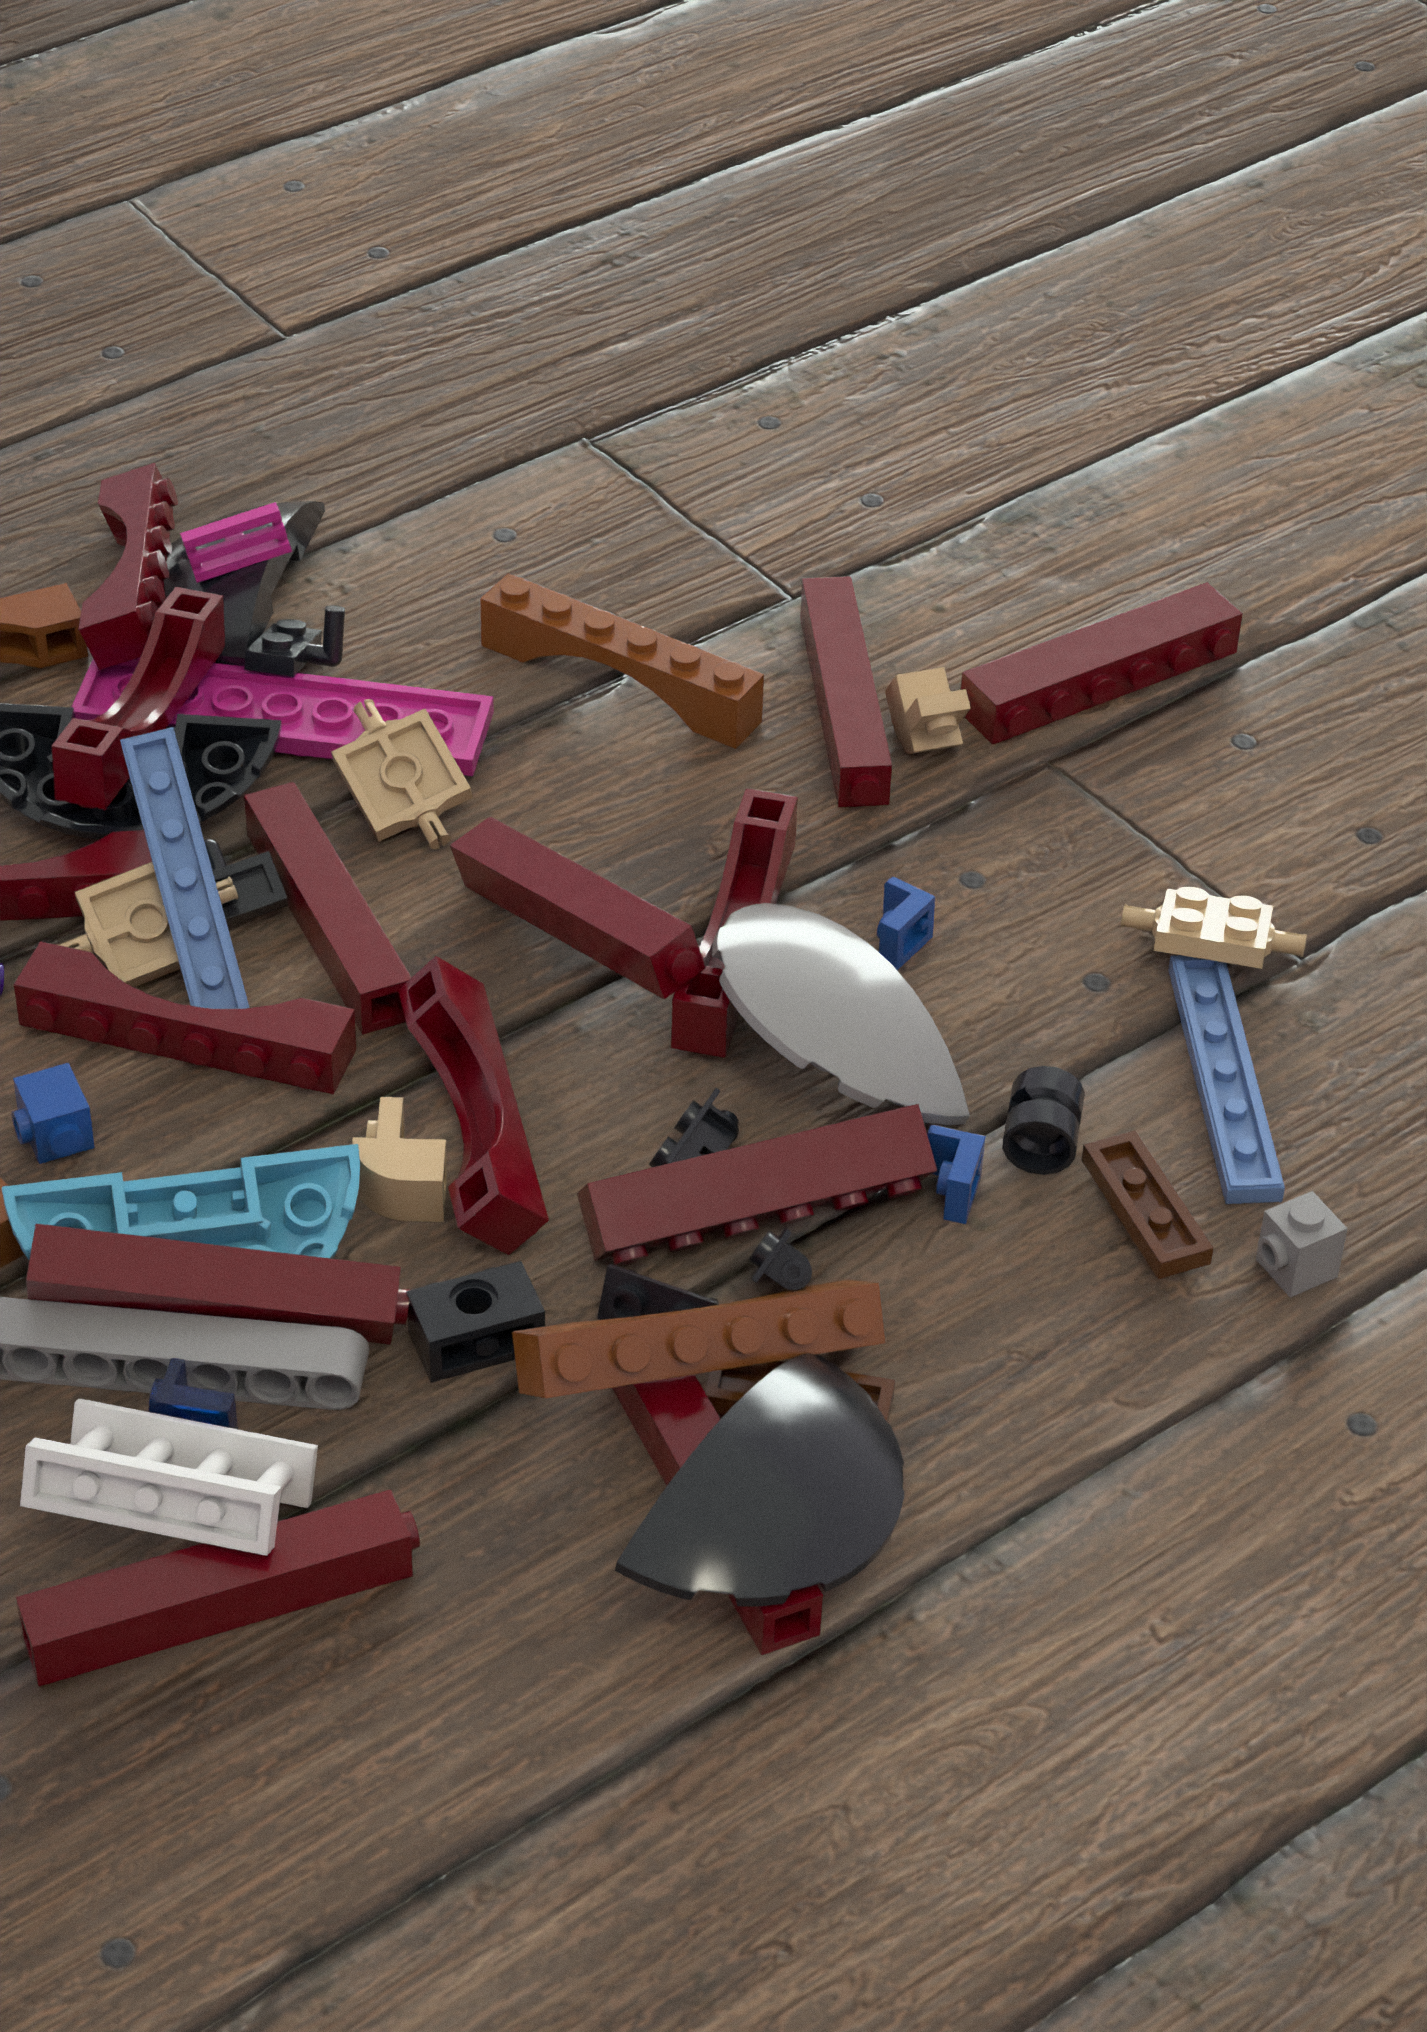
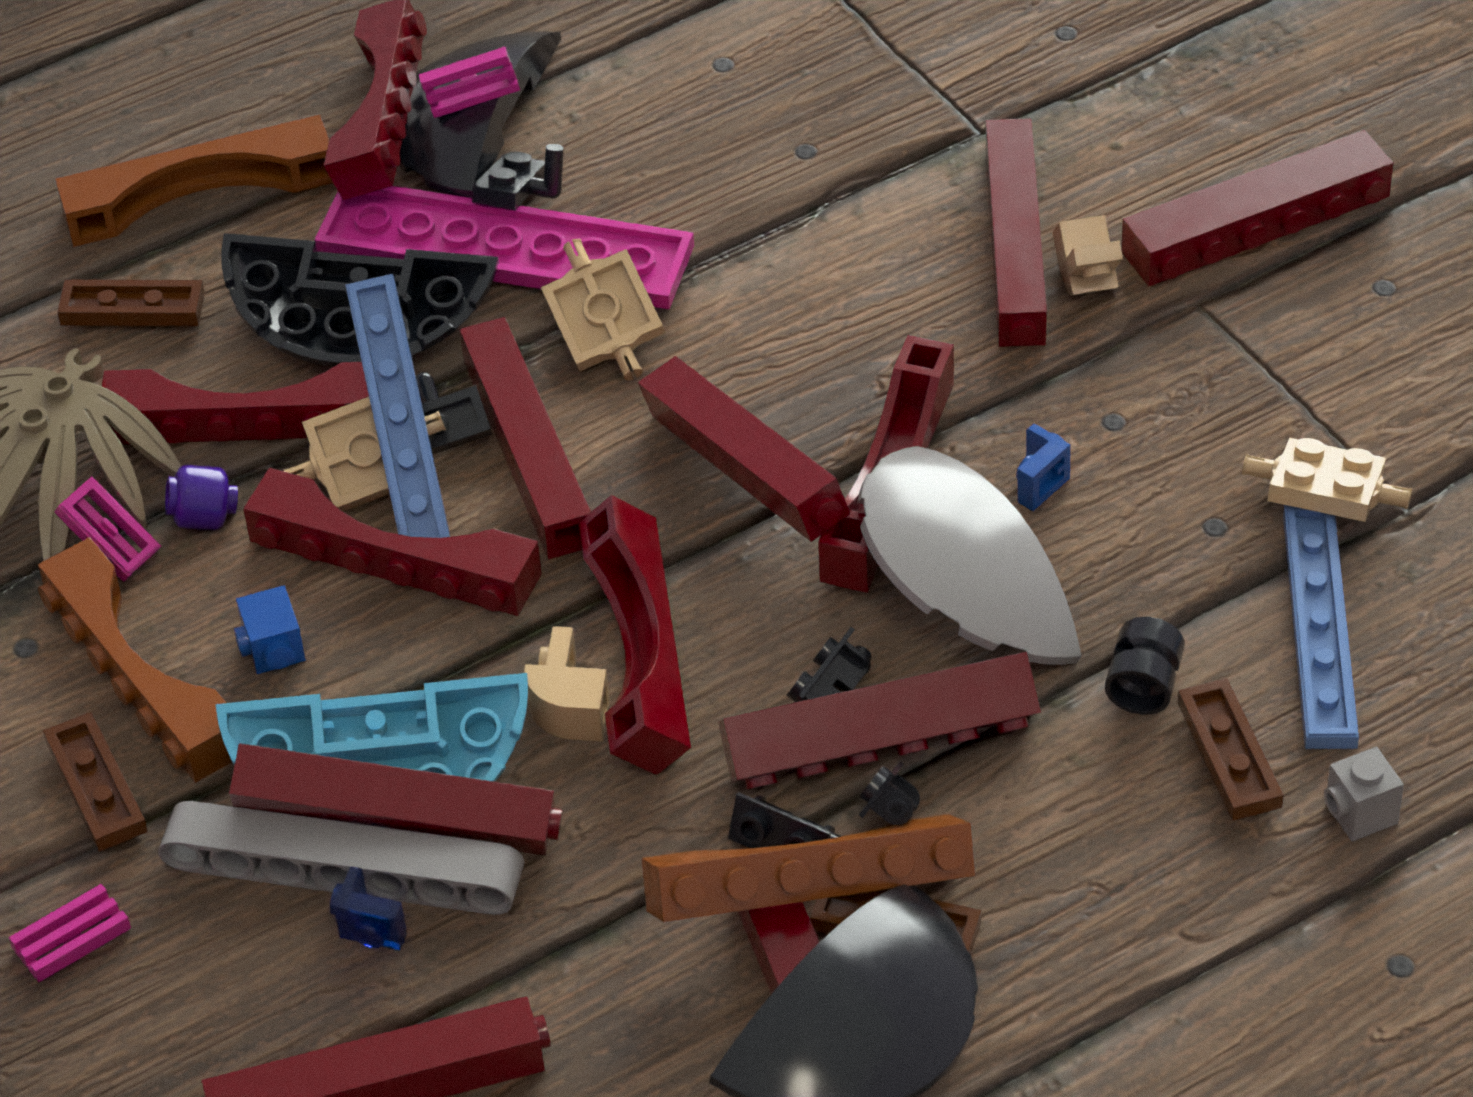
camera: 10 degrees right, 5 degrees up
(169, 1476) = (340, 976): white fence -> none
(176, 657) = (412, 187): dark red arch -> none
(471, 1319) = (612, 836): black brick -> none
(702, 688) = (884, 229): dark orange arch -> none
(959, 1169) = (1064, 710): blue bracket -> none

